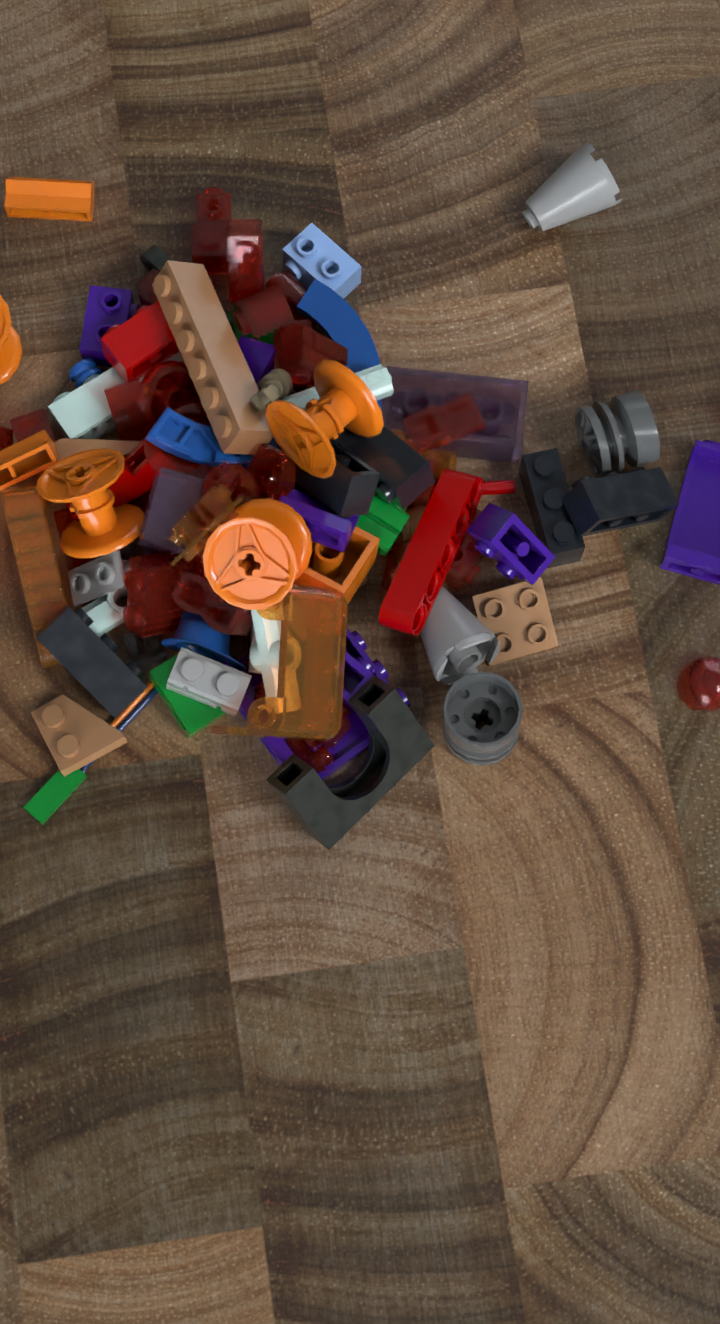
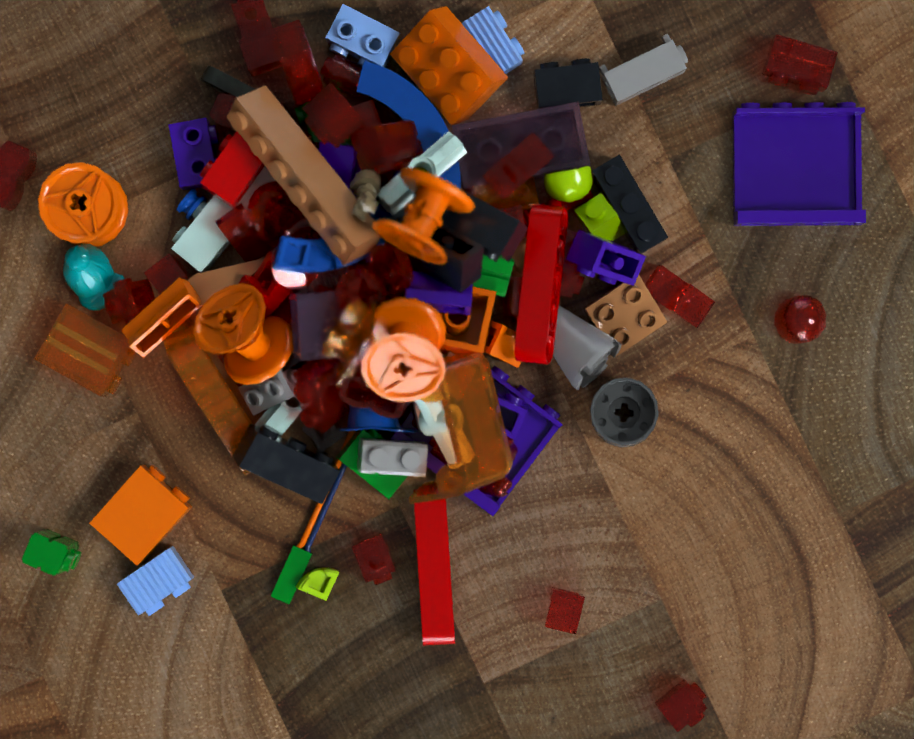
camera: 15 degrees left, 15 degrees up
(49, 198) = (99, 43): orange piece -> none
(75, 734) = (291, 524): medium nougat wing -> none
(82, 808) = (318, 582): none -> lime tile
(153, 799) = (374, 559): none -> clear red brick
(216, 829) = (434, 572): none -> red beam
(348, 920) = (564, 610): none -> clear red panel
(365, 609) = (501, 343): none -> orange brick
(394, 749) = (525, 522): pearl dark grey arch -> none
(402, 309) = (448, 65): none -> orange brick
(452, 309) = (490, 34): none -> light blue brick
(453, 1074) = (683, 705): none -> clear red brick
(493, 460) = (569, 184): none -> lime hair
(521, 502) = (600, 218): none -> lime brick
(535, 365) = (568, 84): none -> black brick
(579, 622) = (679, 296): none -> clear red slope
(606, 378) = (644, 71): none -> light grey brick
(617, 433) = (662, 127): dark grey wheel -> none
(619, 500) = (685, 185): black brick -> none

